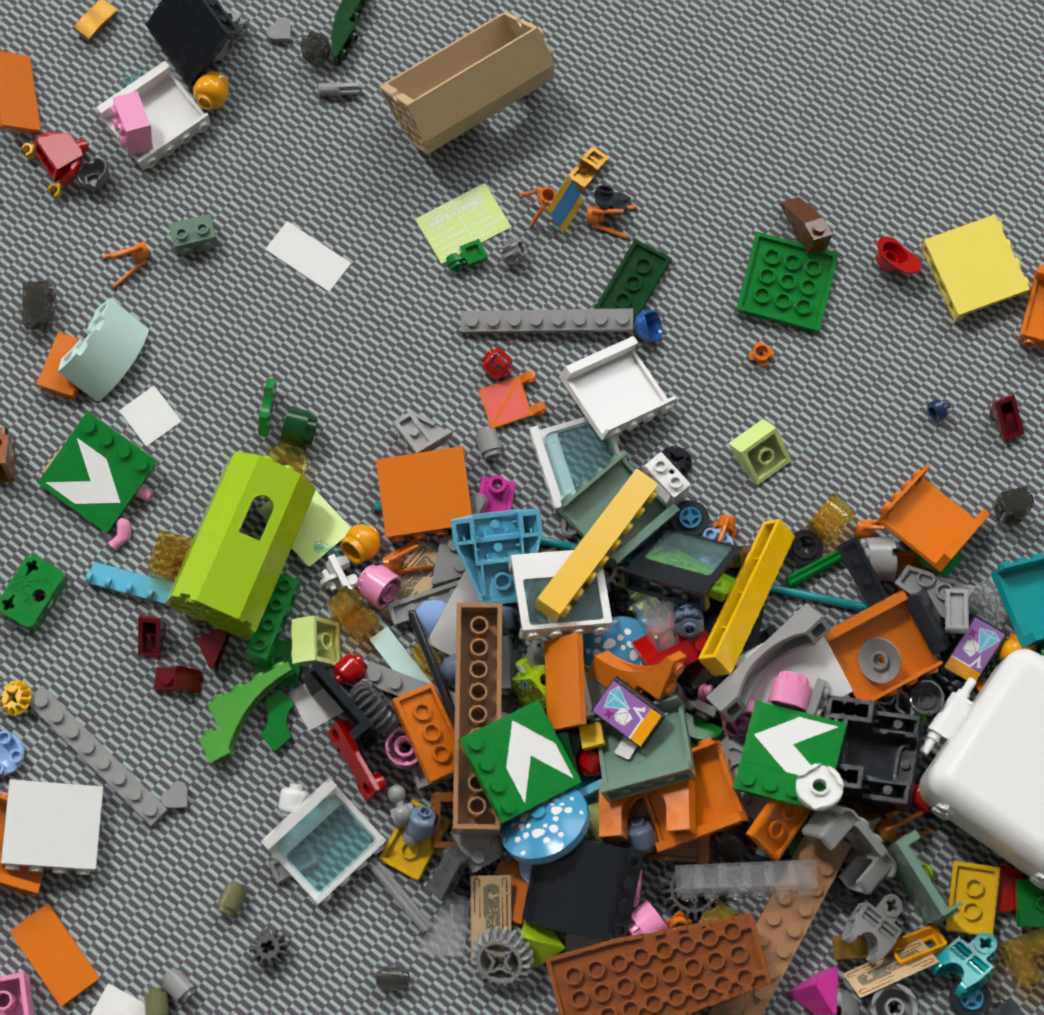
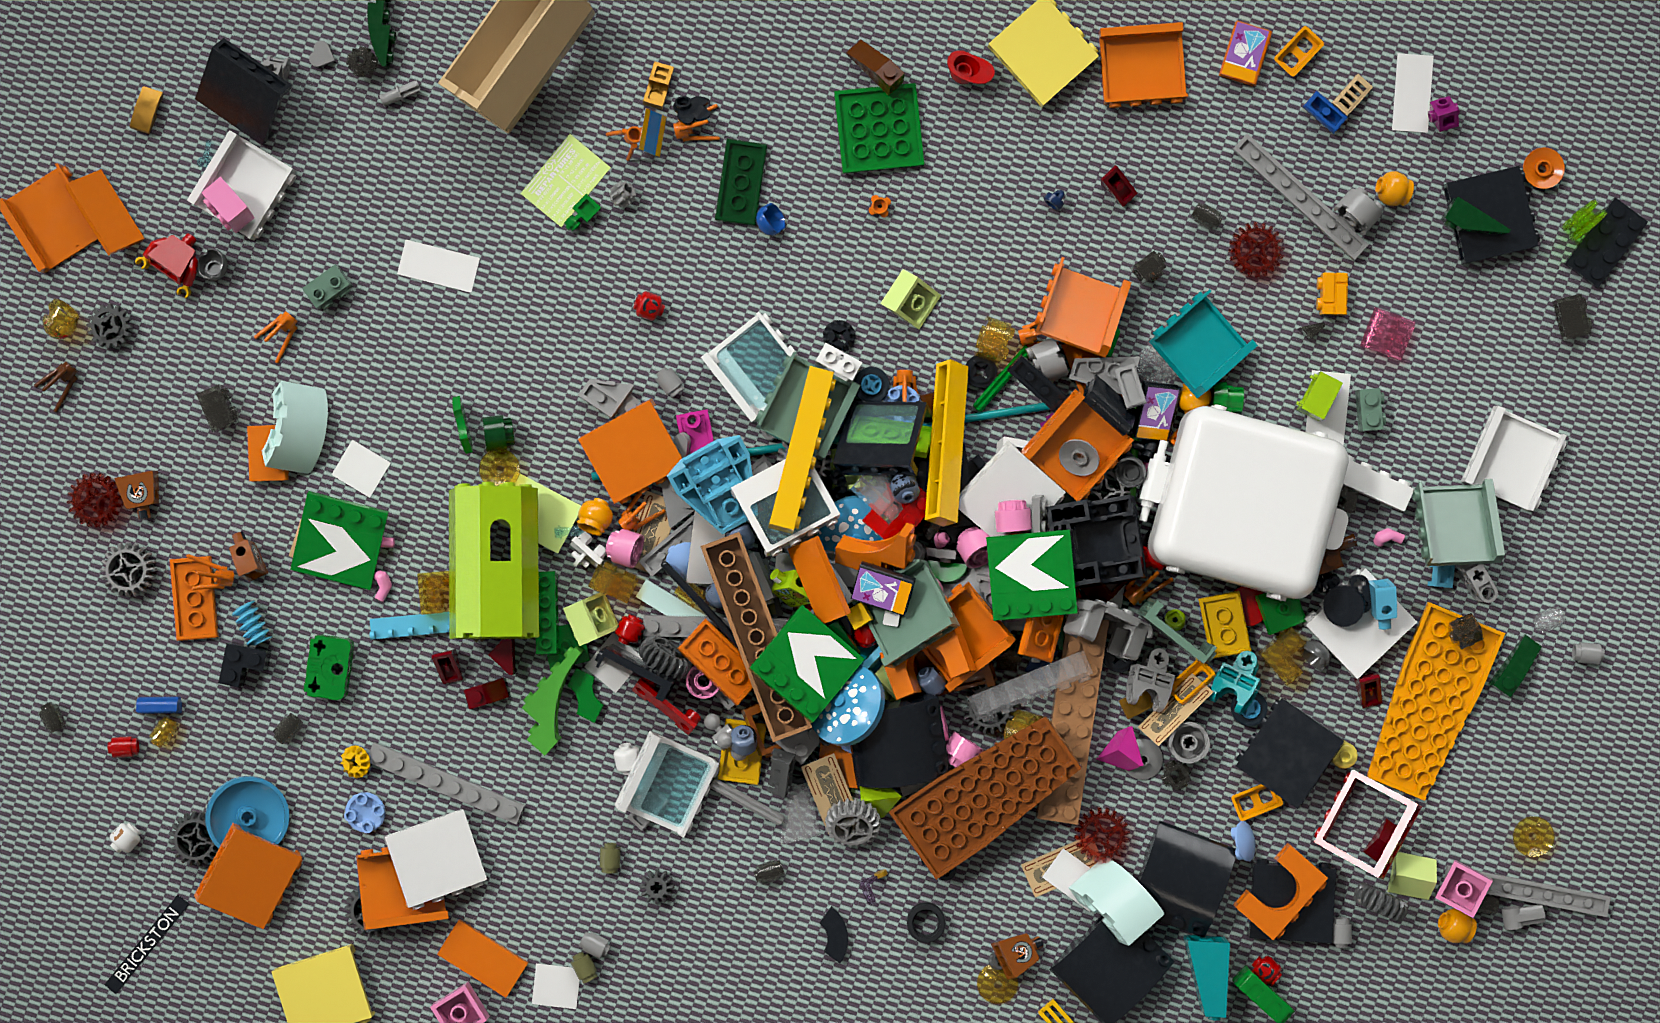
camera: 15 degrees left, 15 degrees up
(176, 797) = (527, 791): light grey tile -> none
(211, 90) = (284, 142): light orange piece -> none
(507, 401) = (671, 336): flag -> none
(547, 321) = (677, 248): light grey plate -> none
(615, 389) = (764, 293): white panel -> none
(677, 920) = (987, 739): orange plate -> none
(800, 631) = (966, 536): light grey arch -> none
(819, 800) = (1069, 607): white tile -> none

